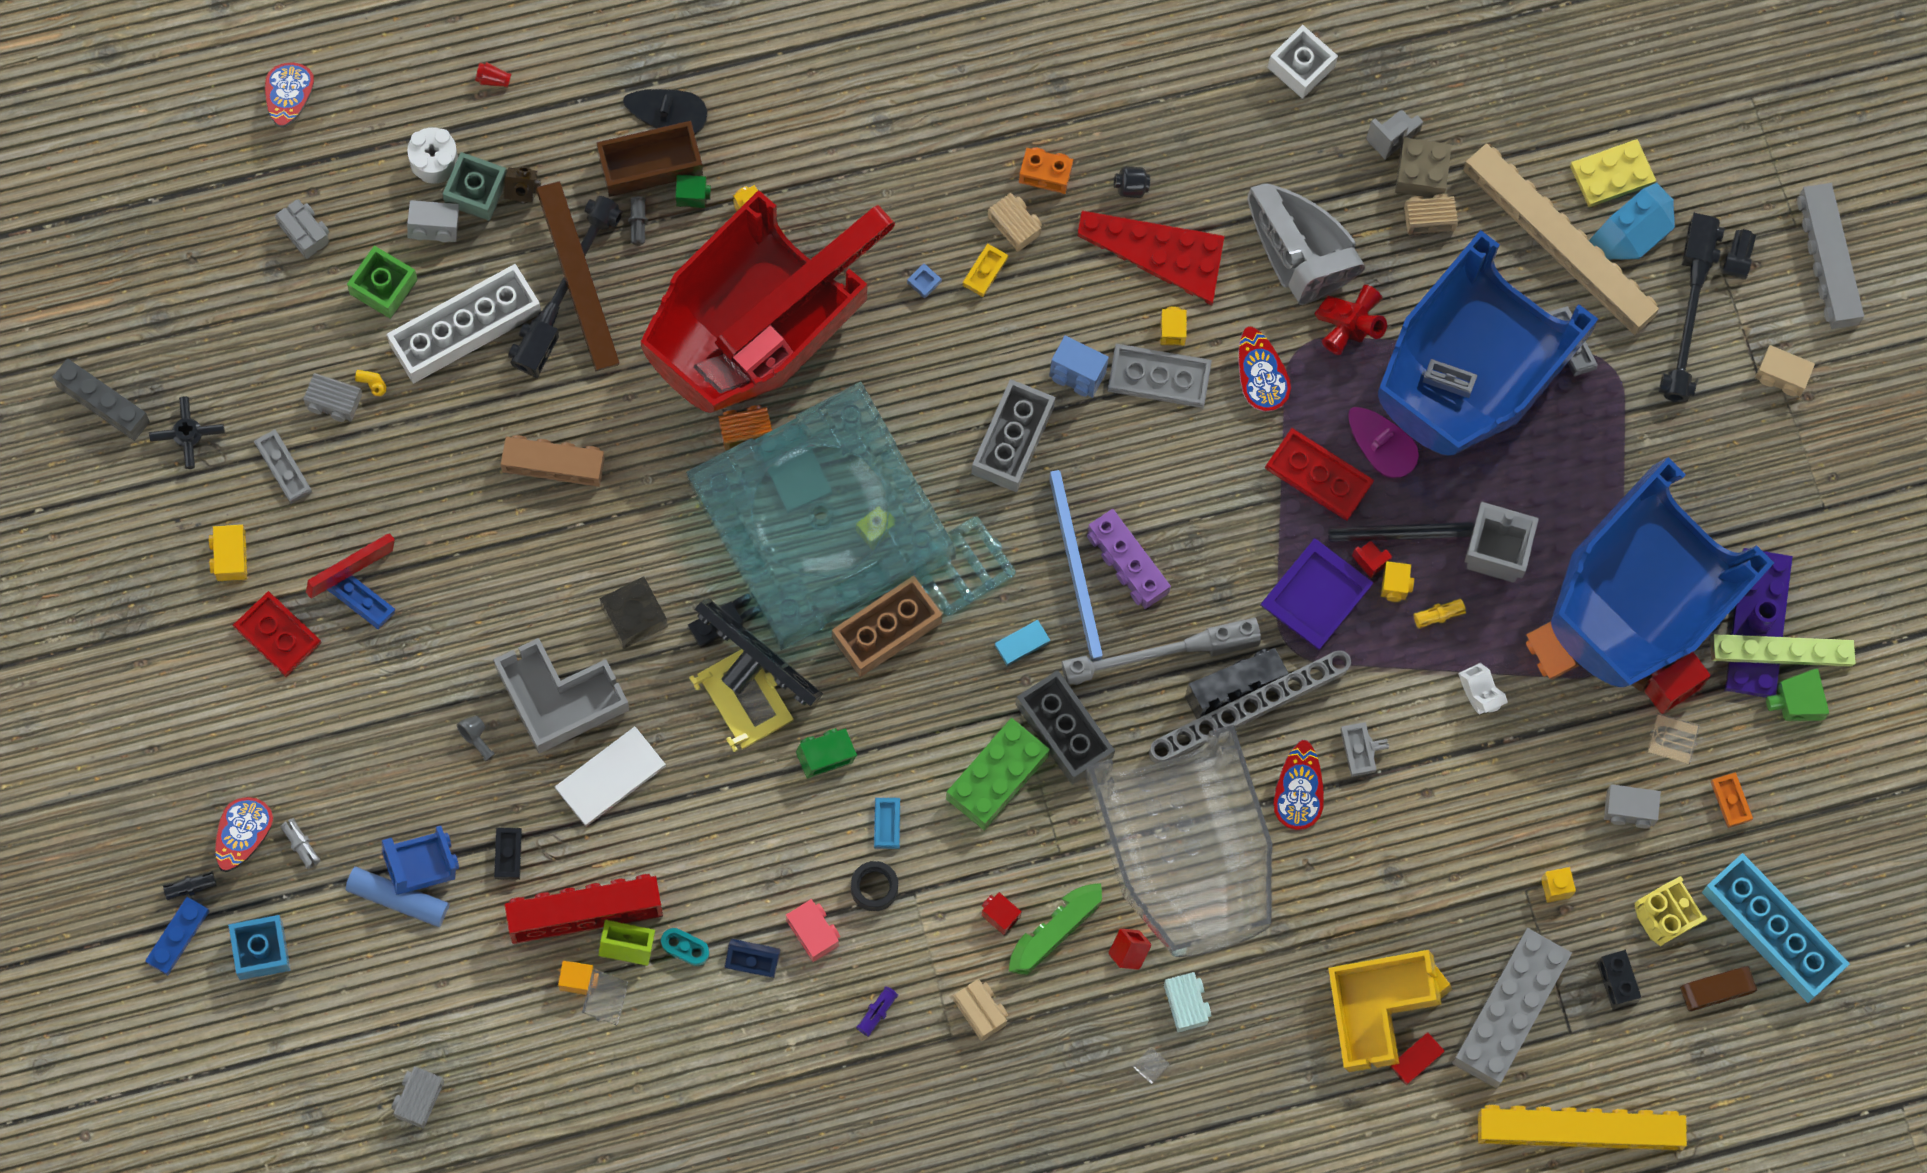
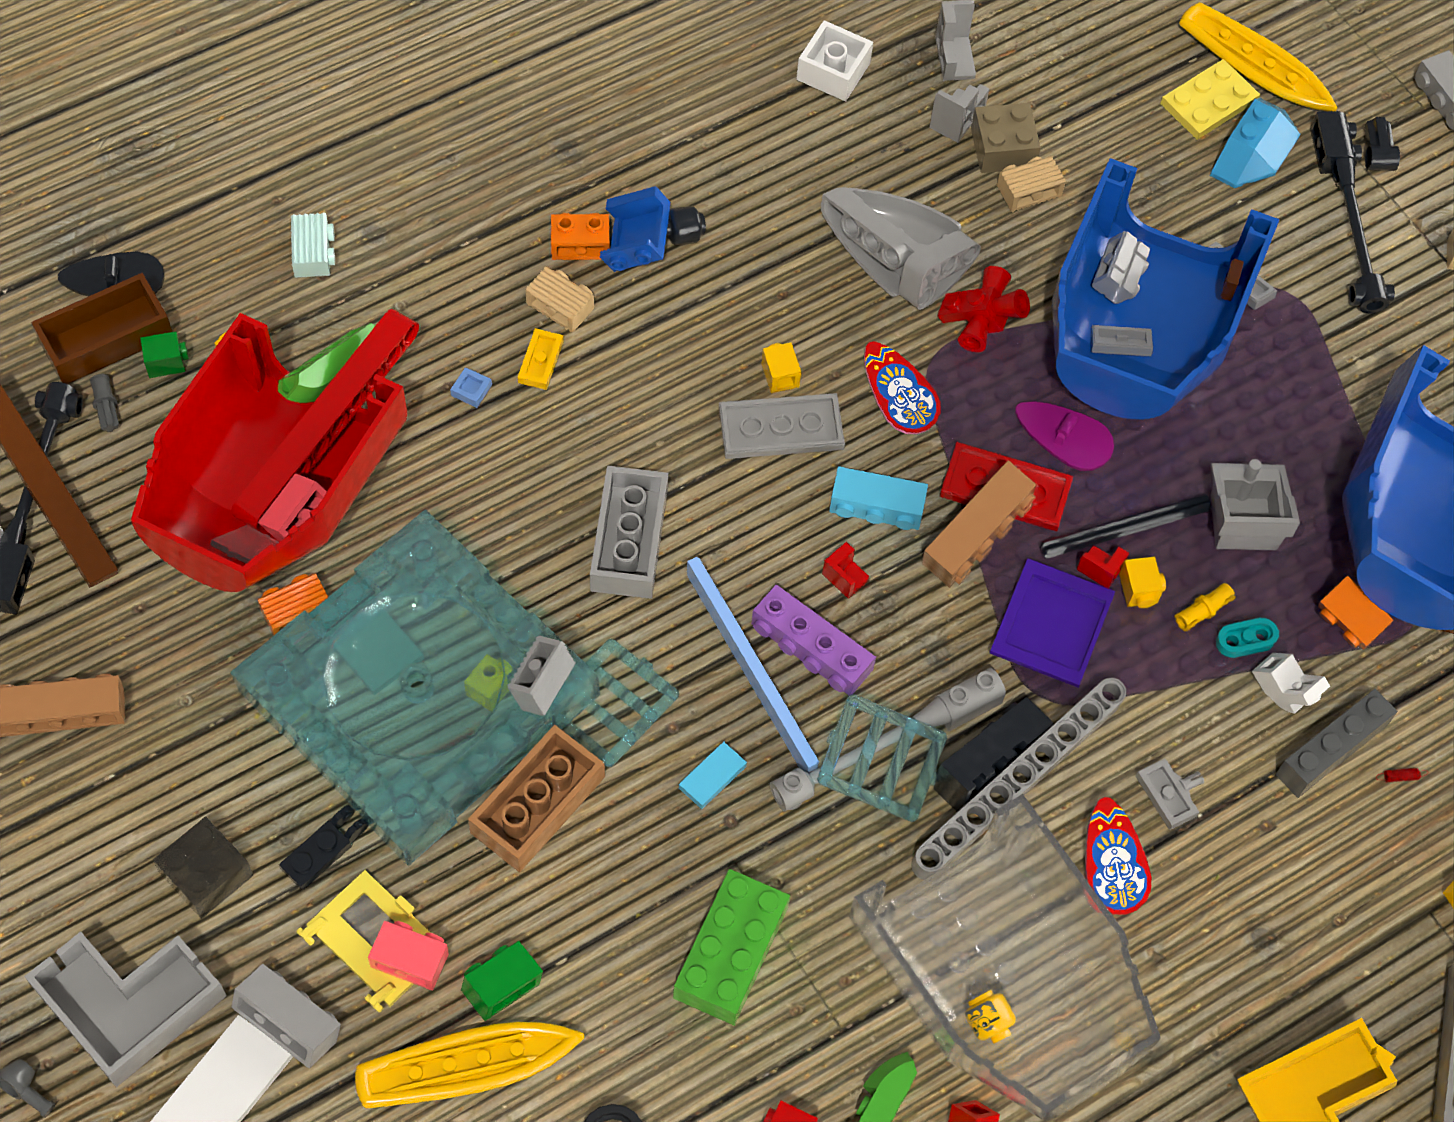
camera: 15 degrees left, 10 degrees down
(668, 736) = (286, 1015): none -> light grey brick
(754, 657) = (374, 881): black plate -> none
(764, 716) = (409, 954): none -> coral brick
(784, 804) = (463, 1063): none -> yellow piece
(812, 239) = (314, 375): none -> bright green brick
(829, 123) = (311, 245): none -> light aqua brick
(887, 823) = (606, 1051): dark azure tile -> none
(912, 538) = (541, 675): none -> light grey brick
(1064, 726) = (799, 861): dark grey brick -> none
(1078, 367) = (684, 434): medium blue brick -> none
(1092, 178) = (637, 228): none -> blue panel
(1158, 634) = (854, 787): none -> clear light blue bar
(1166, 875) = (990, 1016): none -> yellow head
(1167, 252) = (743, 291): red wing -> none
(1171, 509) = (843, 571): none -> red panel
(1215, 458) = (878, 498): none -> medium azure brick
(1283, 503) = (979, 524): none -> medium nougat brick
(1411, 69) = (953, 40): none -> light grey panel
(1461, 644) = (1245, 637): none -> teal plate
(1471, 316) = (1121, 268): none -> light grey brick
(1501, 746) = (1336, 743): none -> dark grey brick
(1544, 783) = (1398, 775): none -> red piece
(1552, 353) = (1232, 279): none -> reddish brown tile
(1561, 238) = (1180, 172): tan brick -> none
(1666, 144) = (1257, 57): none -> yellow piece

